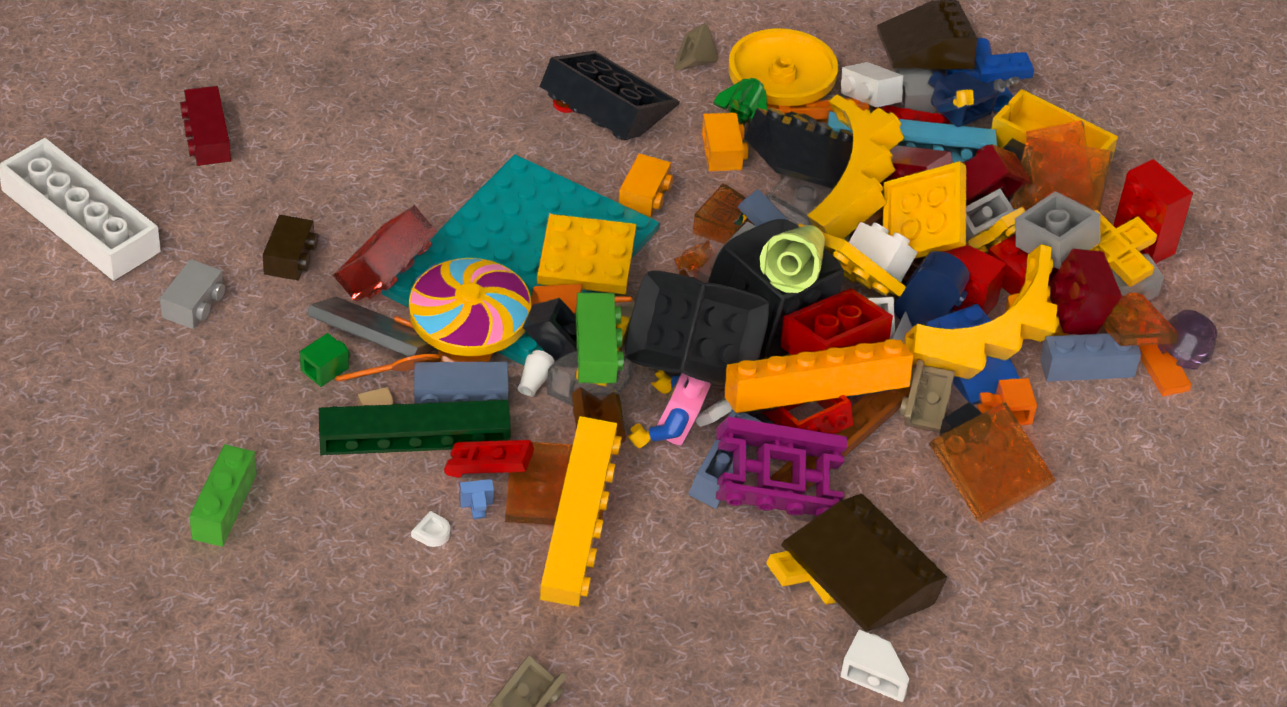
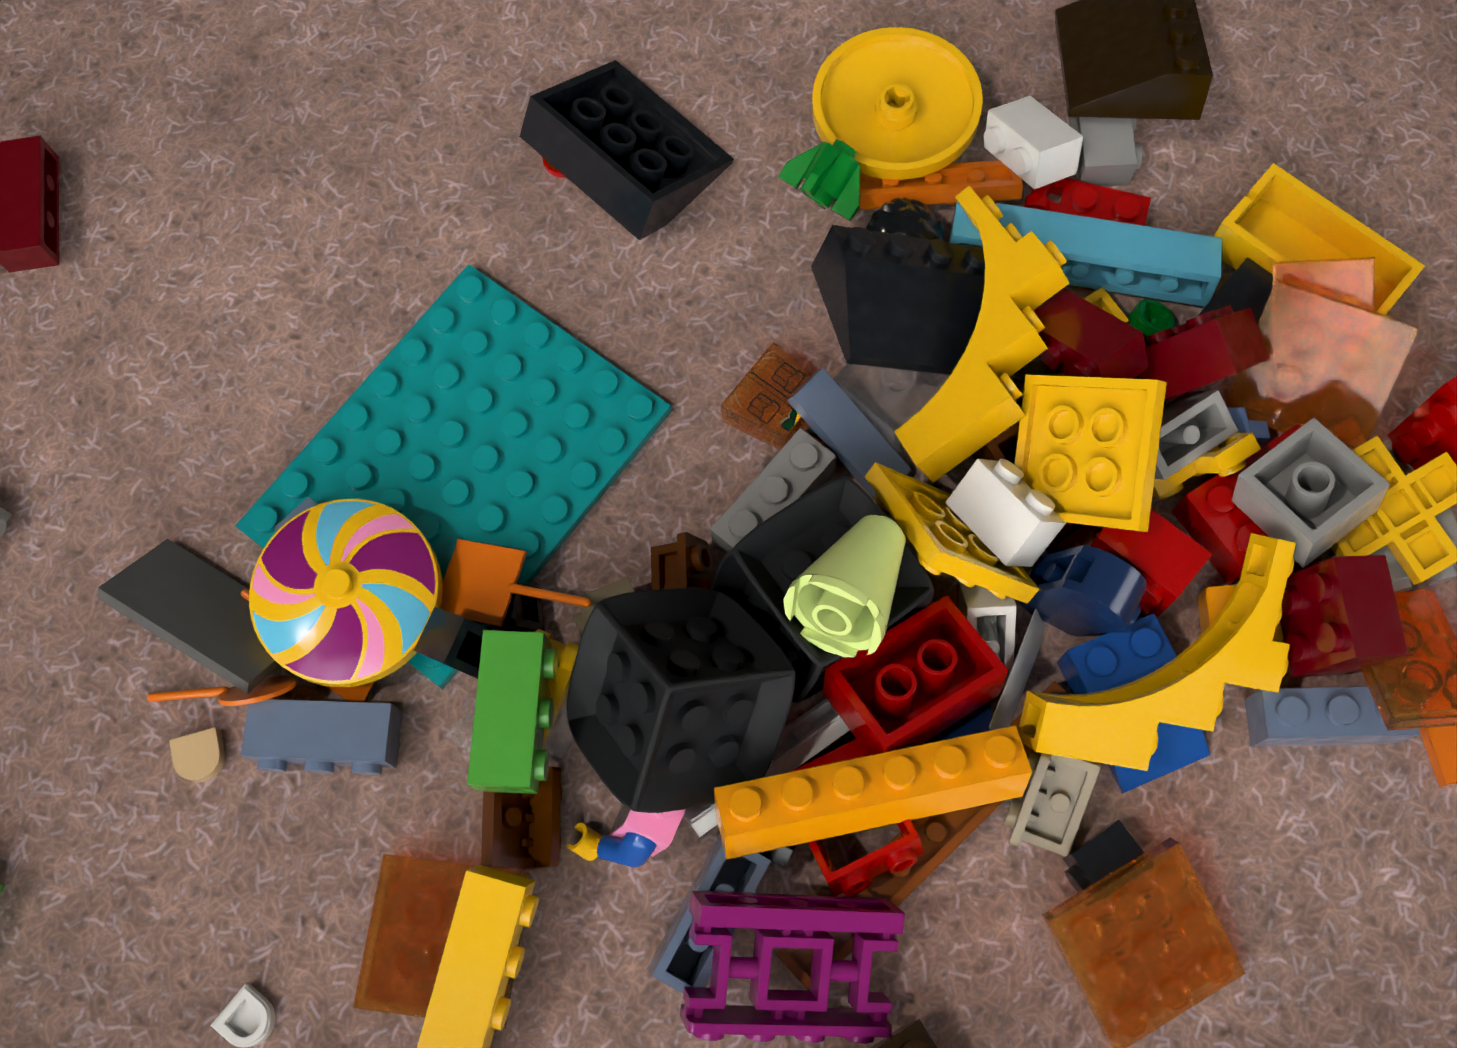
camera: 15 degrees right, 25 degrees up
(289, 247) = (107, 445): dark brown brick -> none
(324, 359) = (126, 672): green brick -> none
(385, 254) = (235, 479): clear red brick -> none
(411, 426) = (239, 815): dark green brick -> none
(477, 496) = (315, 968): medium blue tile -> none
(489, 457) = (342, 896): red plate -> none
(535, 372) = (441, 708): white cone -> none
(587, 253) = (546, 478): yellow plate -> none
(646, 185) = (656, 334): light orange brick -> none
(694, 256) = (705, 500): clear orange plate -> none
(696, 49) = (770, 58): dark tan slope -> none
(723, 141) = (787, 246): light orange brick -> none
(964, 97) = (1180, 174): dark blue torso -> none
(999, 66) = (1229, 119): blue brick -> none
(1017, 395) = (1191, 803): orange brick -> none

